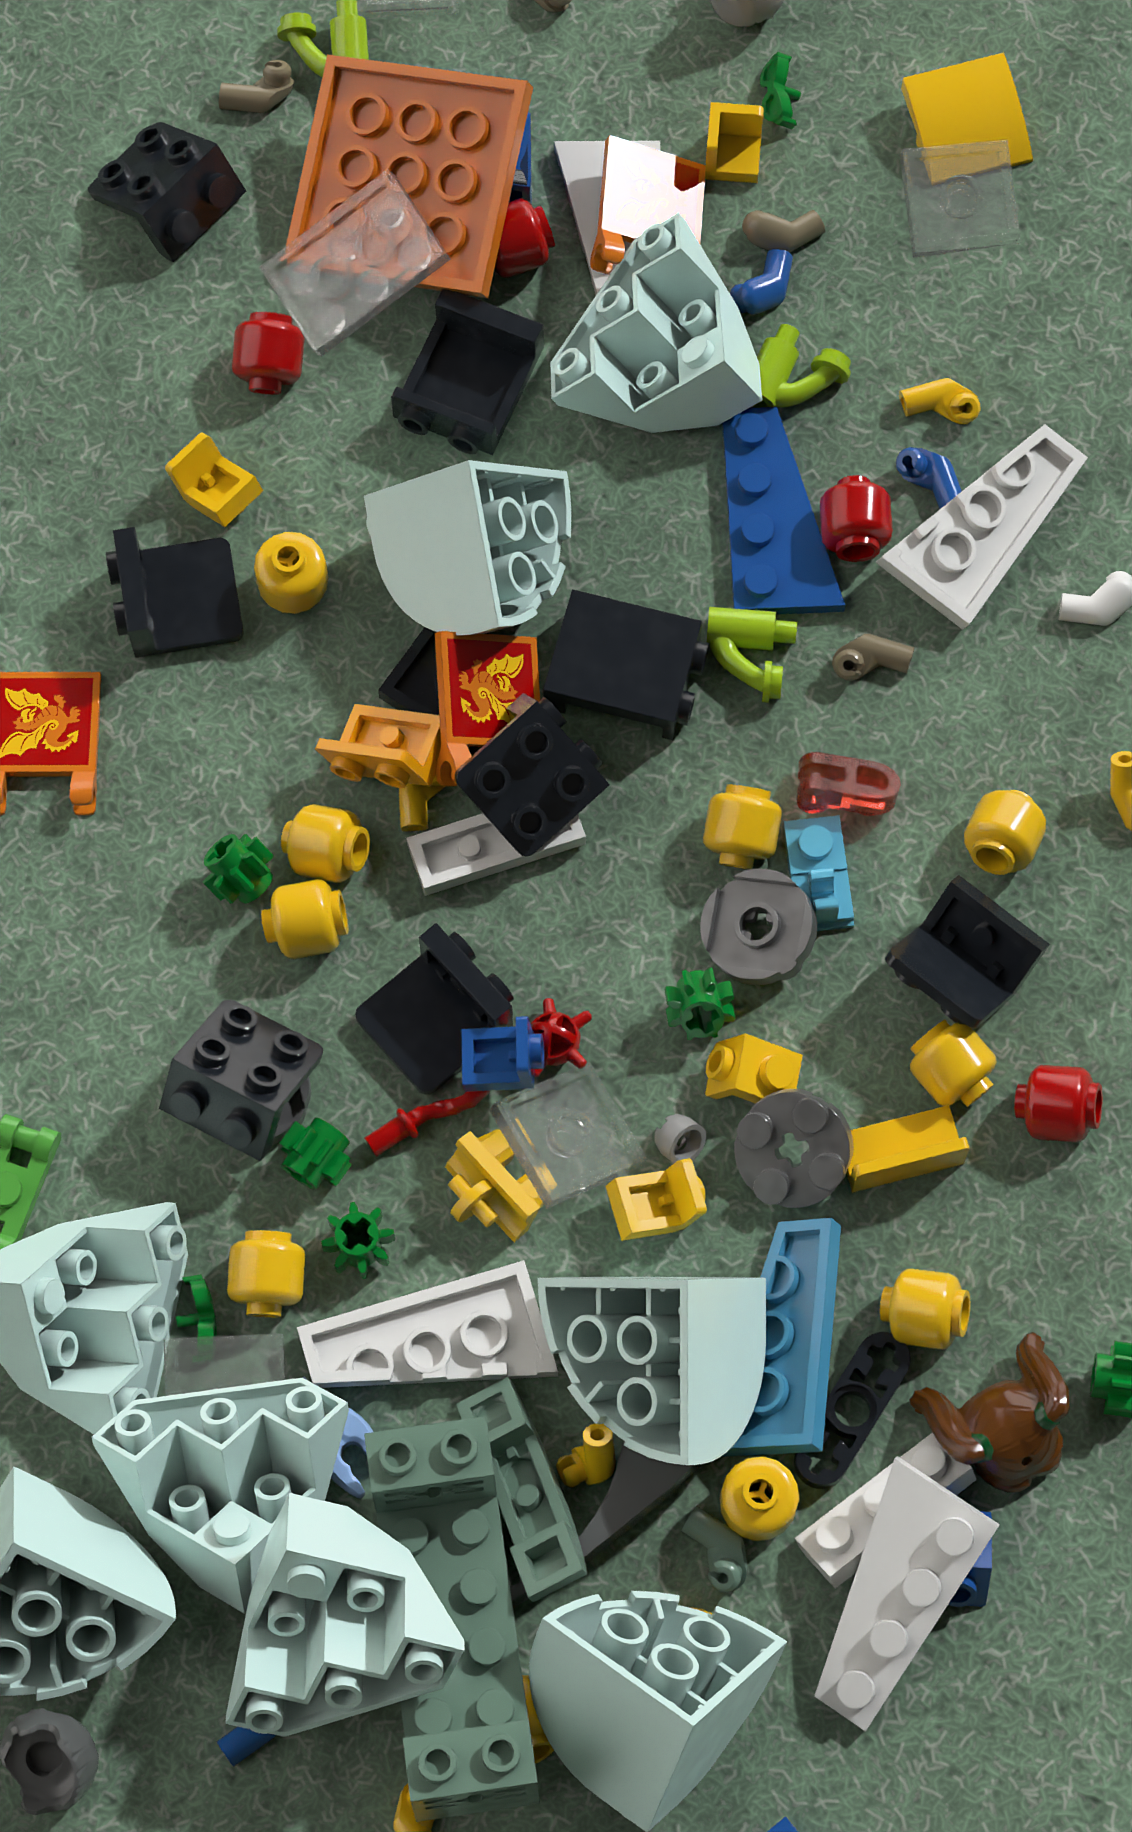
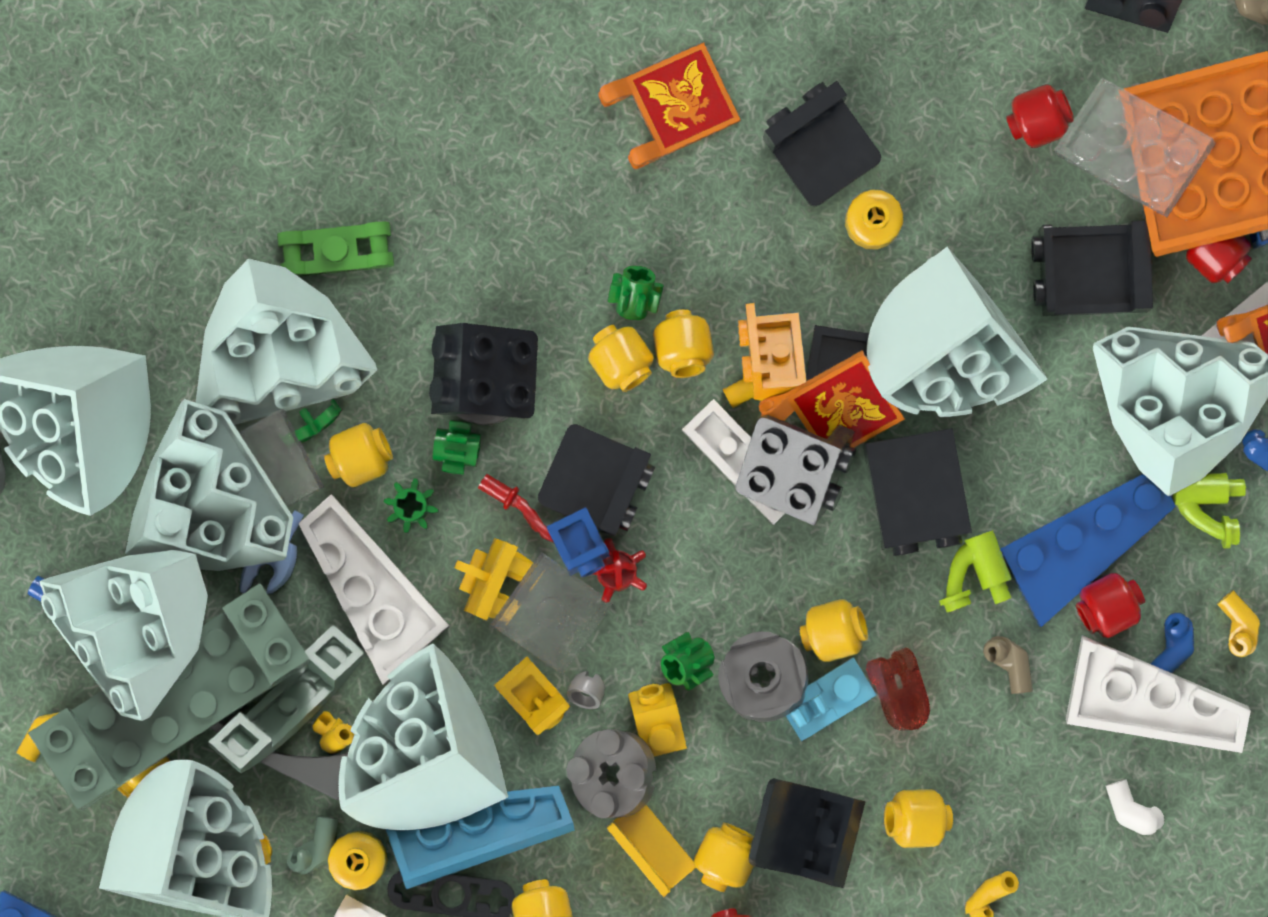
camera: 65 degrees right, 15 degrees up
(211, 481) = (919, 127): yellow bracket -> none

